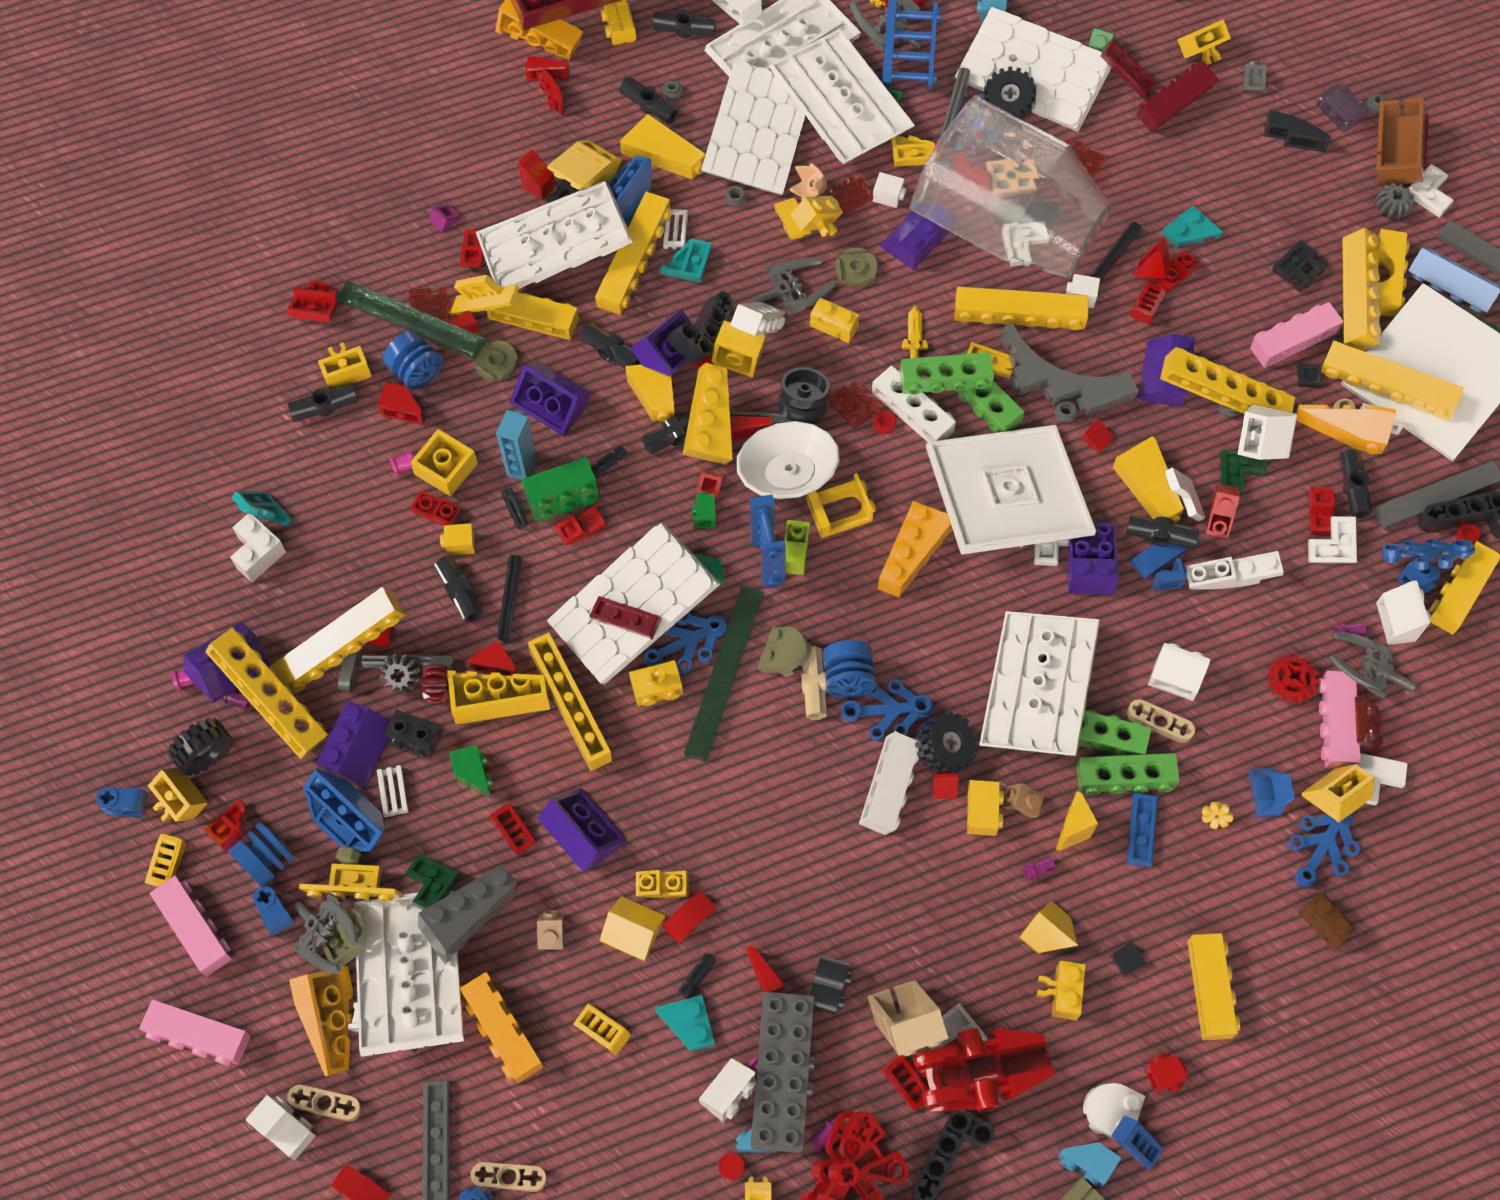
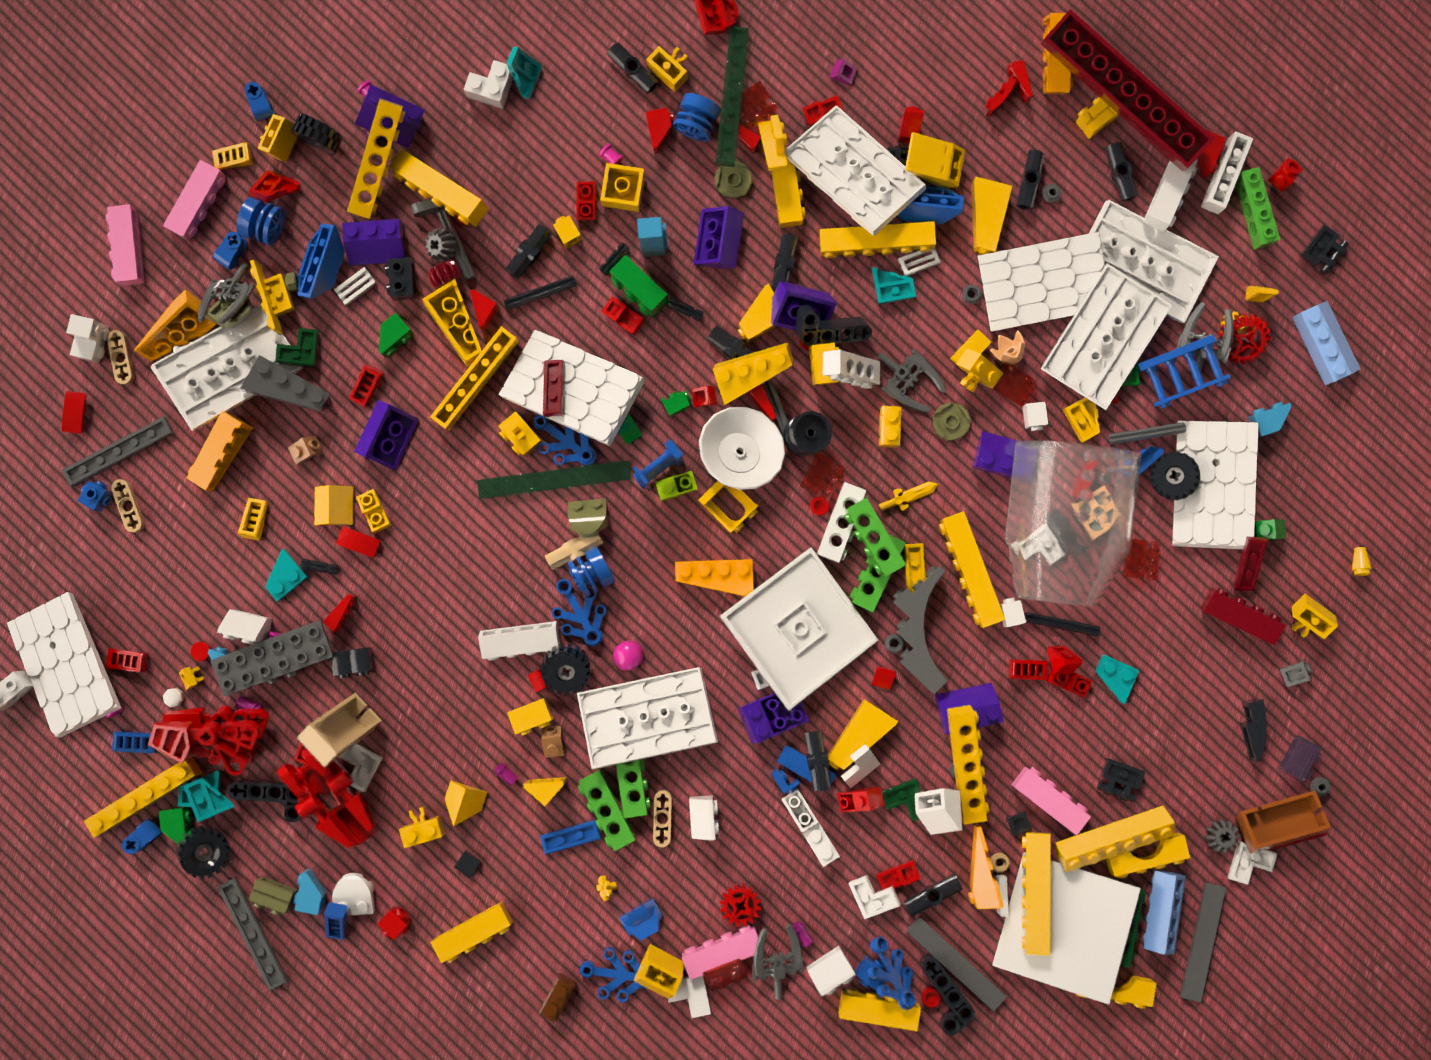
camera: 65 degrees right, 20 degrees up
(959, 679) = (628, 655): none -> dark pink hair

